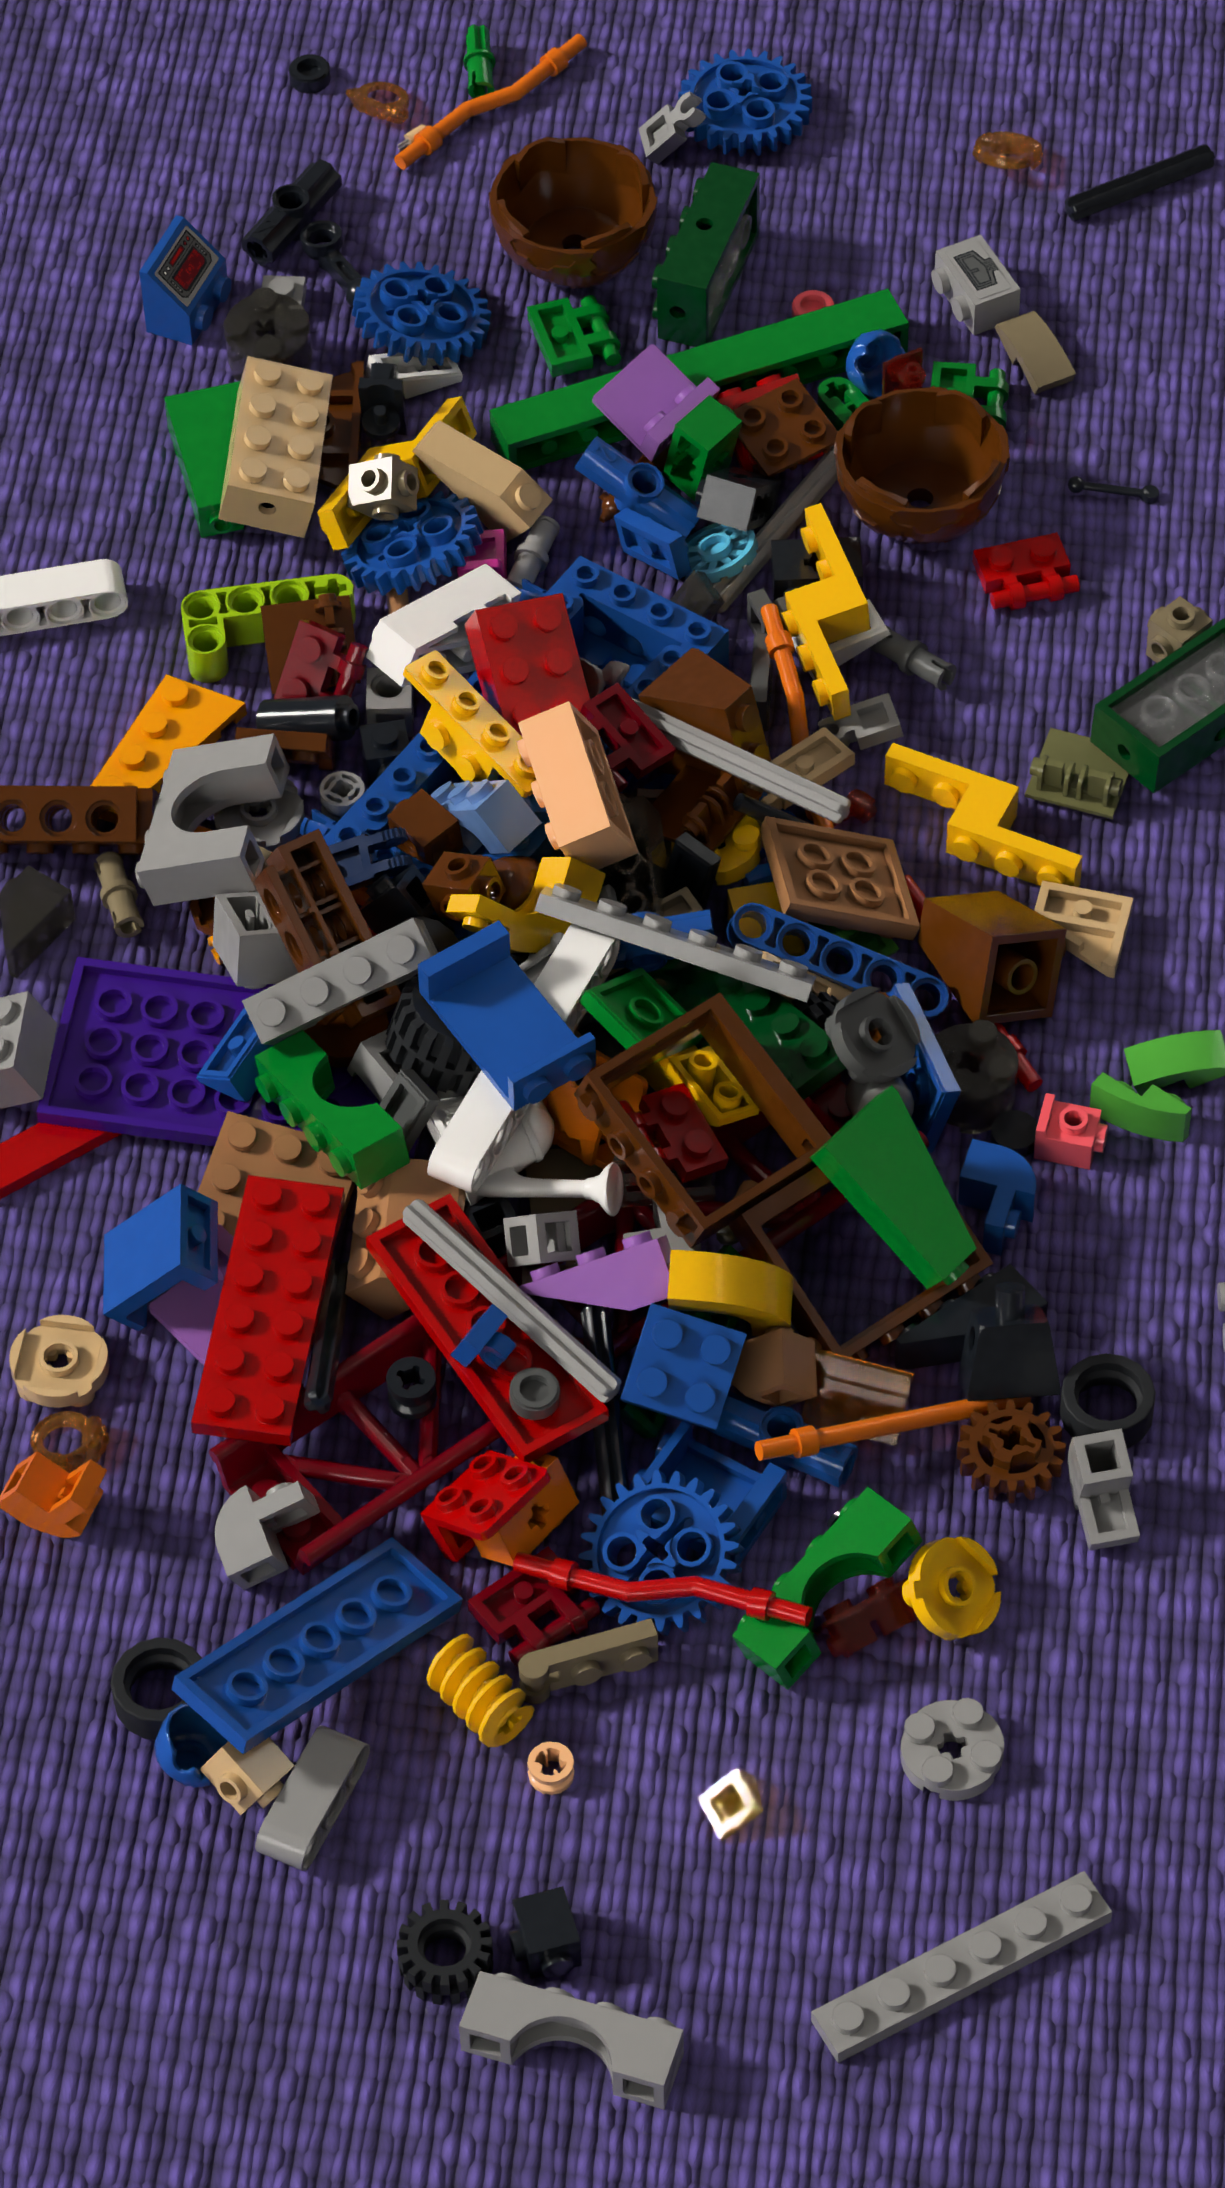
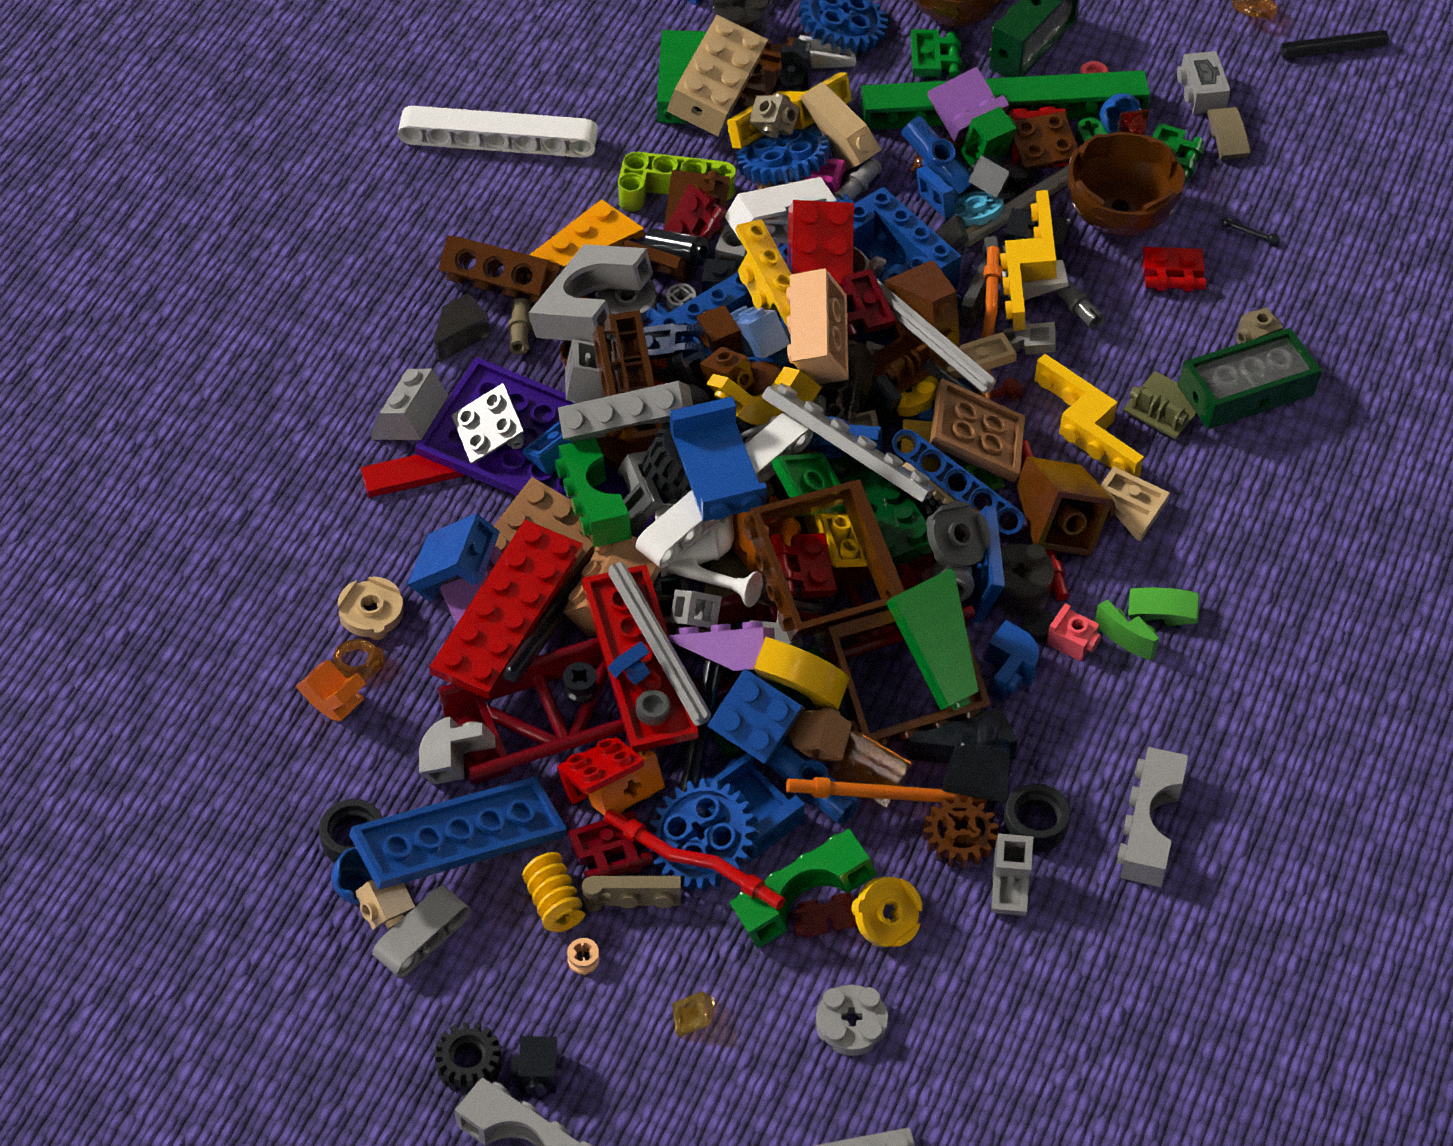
camera: 15 degrees right, 0 degrees up
(136, 1050) = (489, 424): none -> hinge

